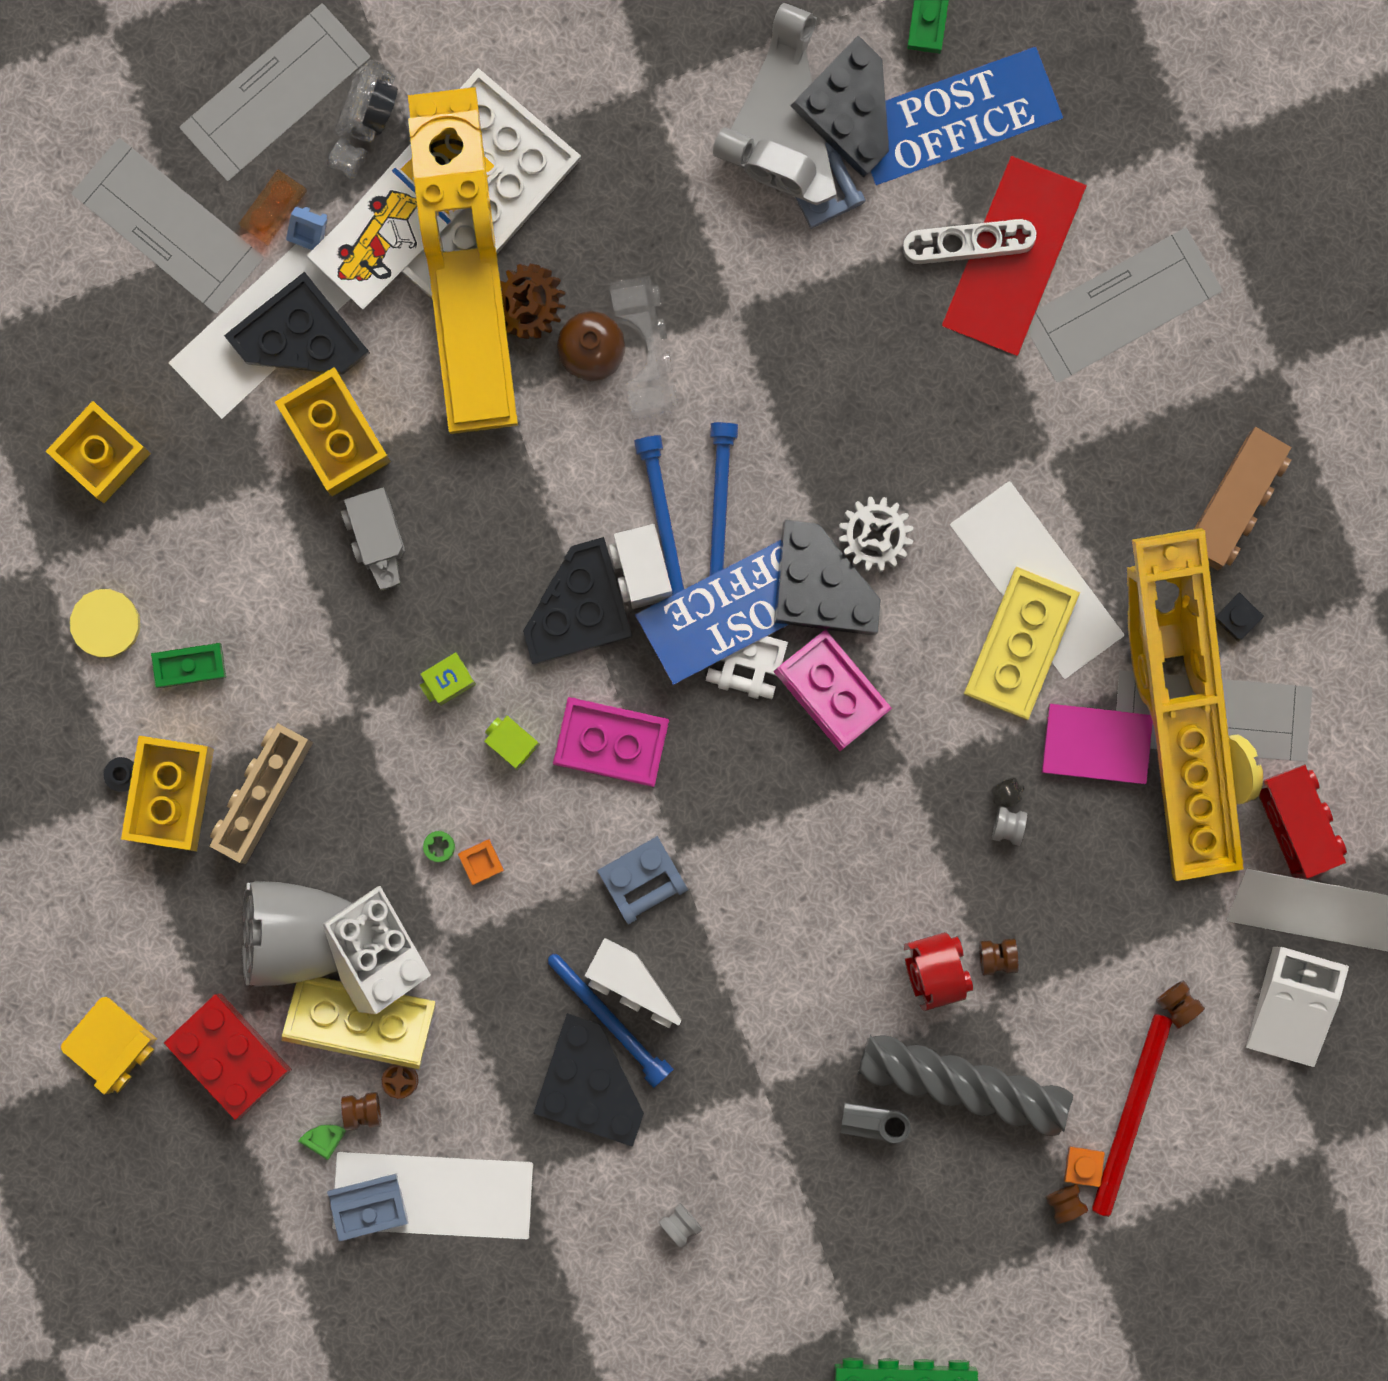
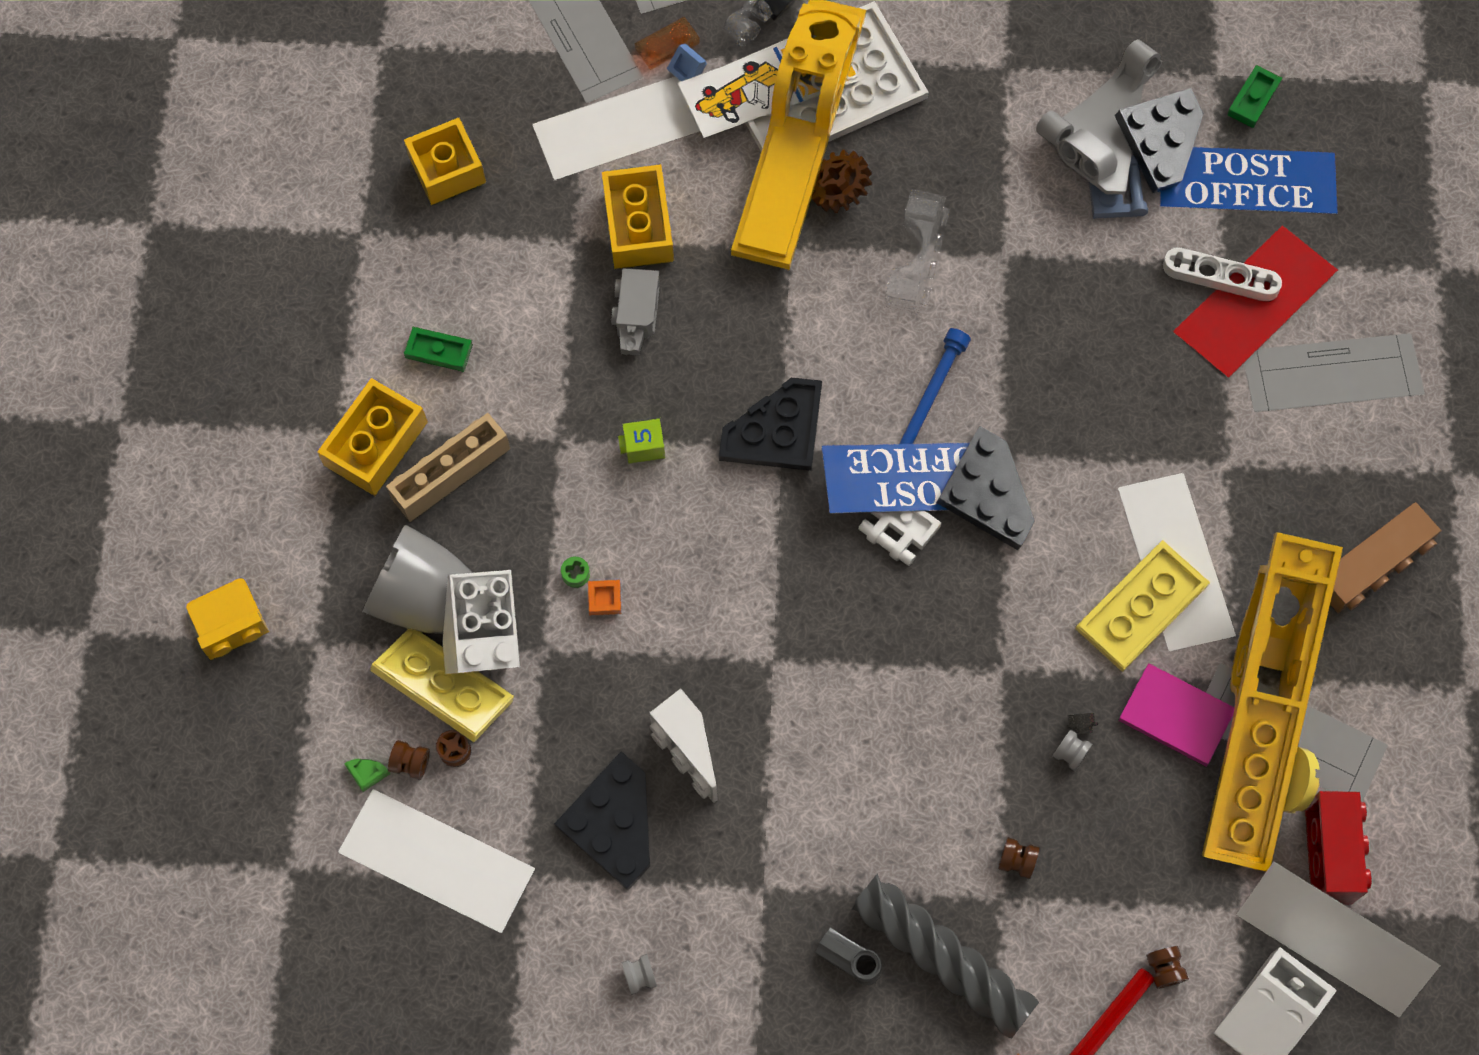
camera: 25 degrees right, 15 degrees down
(104, 623) = (387, 293): light yellow tile -> none
(109, 774) = (335, 405): black plate -> none
(227, 1056) = (319, 667): red brick -> none
(297, 332) = (643, 136): black plate -> none
(367, 1207) = (376, 843): sand blue plate -> none
(510, 741) = (673, 511): lime brick -> none
(591, 346) = (875, 235): reddish brown cylinder -> none
(611, 742) = (757, 546): dark pink tile -> none
(637, 869) = (734, 658): sand blue plate -> none
(642, 565) = (842, 408): white brick -> none
(649, 451) = (888, 329): blue piece -> none
(653, 1067) = (675, 830): blue piece -> none
(832, 690) = (963, 577): tile -> none
(883, 548) = (1061, 457): white gear -> none
(937, 970) = (959, 844): red brick -> none
(1238, 617) = (1343, 659): black plate -> none

